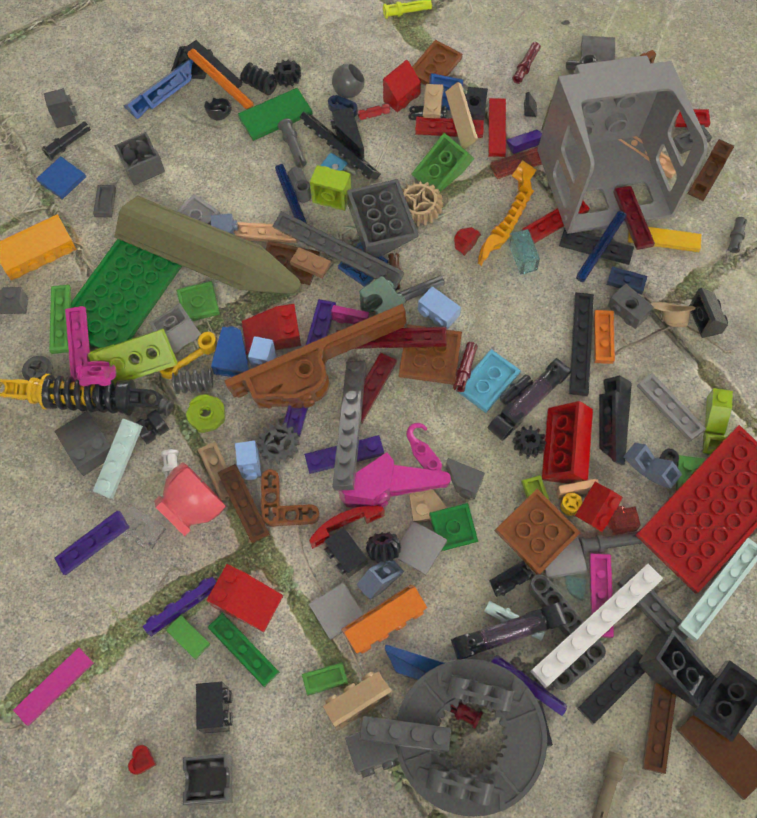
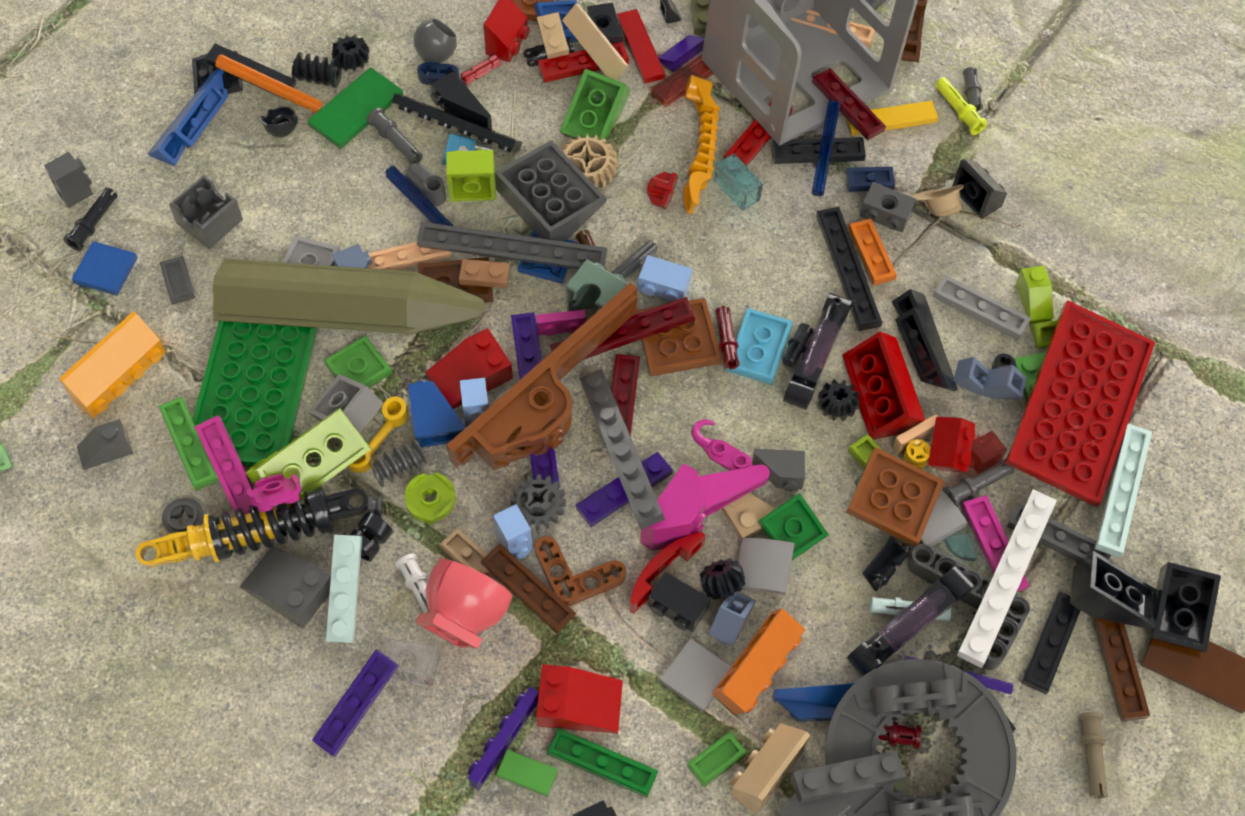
camera: 25 degrees left, 5 degrees down
(724, 250) = (966, 112): none -> neon yellow pin

